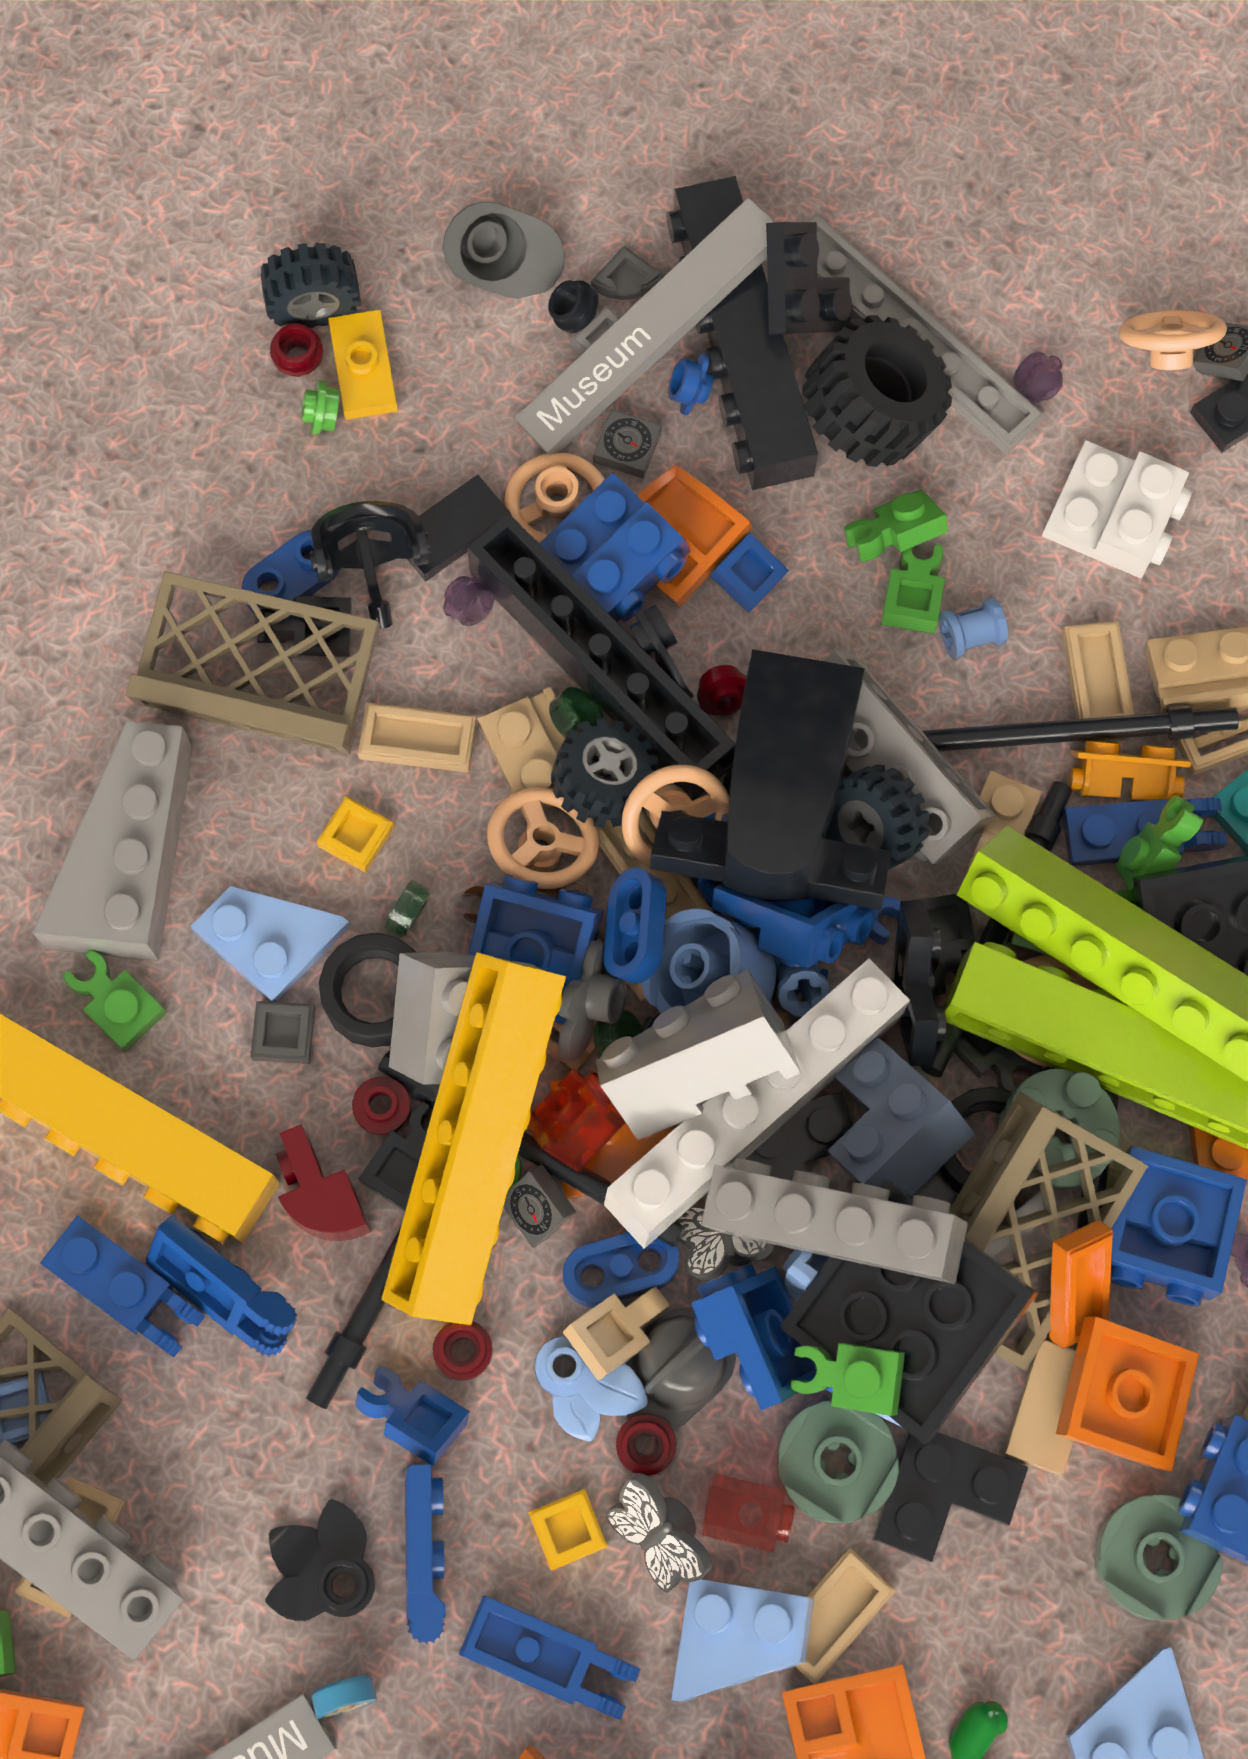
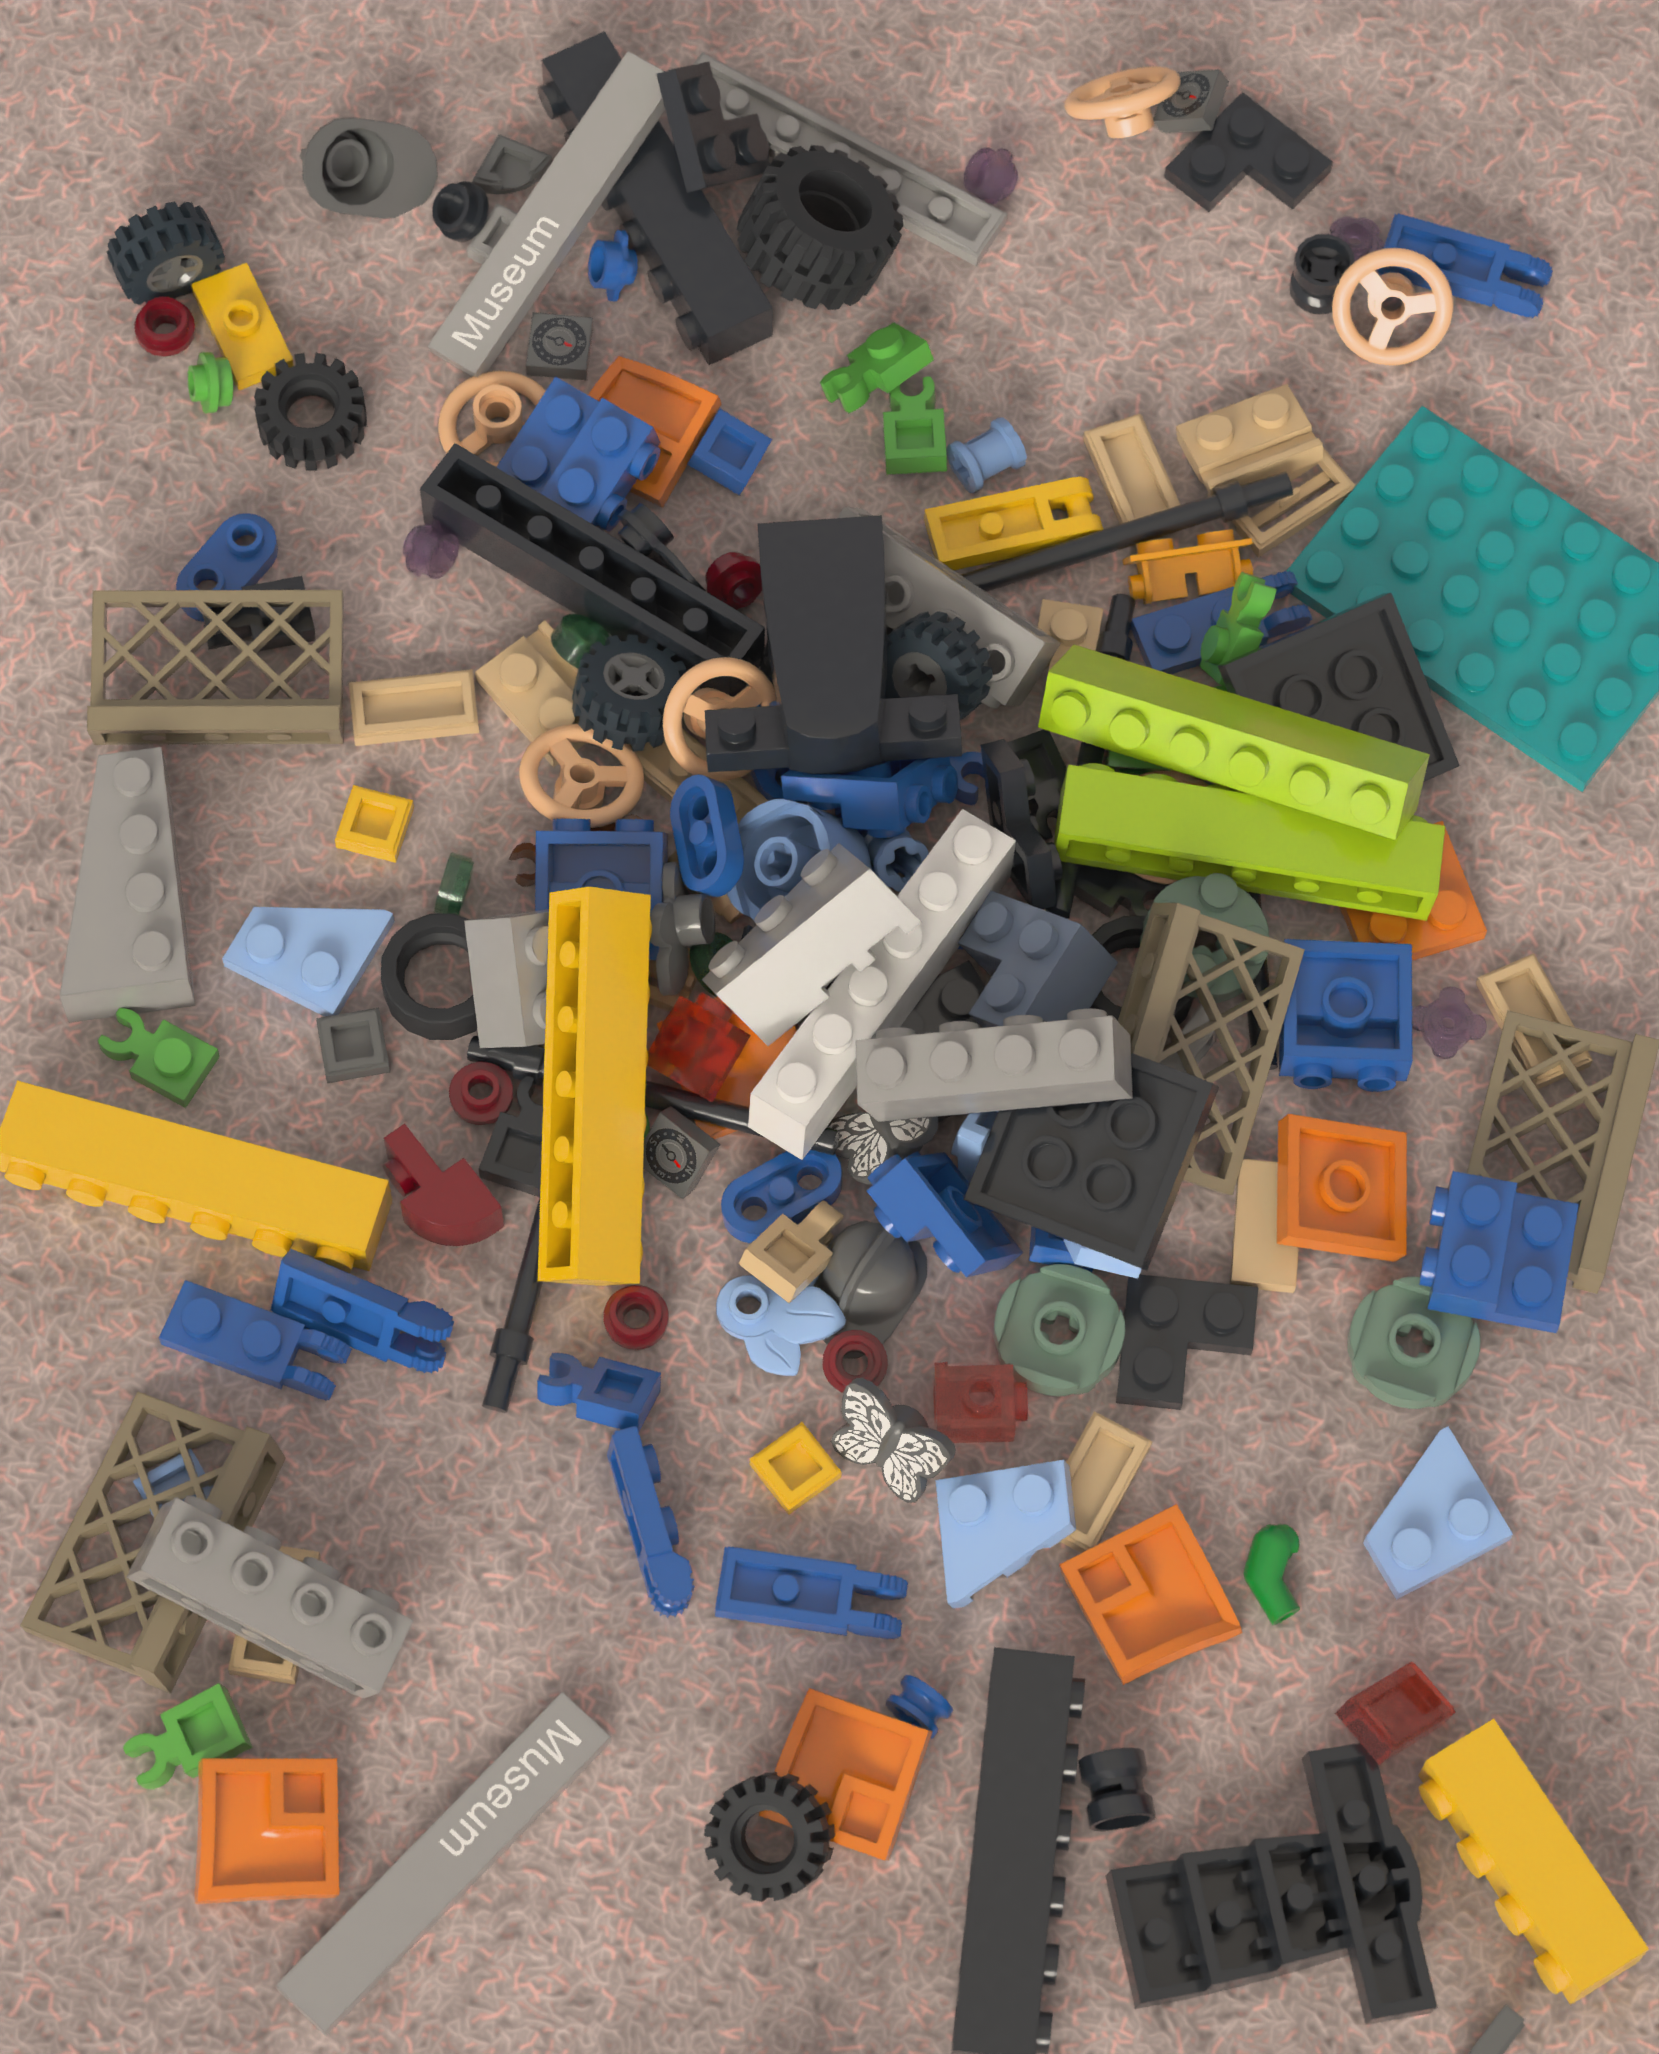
camera: 15 degrees left, 5 degrees down
(313, 1560) = (537, 1561): black plate -> none
(343, 1696) = (606, 1682): dark azure tile -> none
(392, 425) = (310, 380): none -> black tyre
(406, 542) = (348, 499): black helmet -> none
(457, 523) = (388, 479): black tile -> none
(860, 1377) = (1060, 1220): bright green plate -> none
(979, 694) = (1010, 523): none -> yellow plate
(1079, 1281) = (1262, 1083): orange tile -> none
(1119, 508) = (1111, 294): white plate -> none

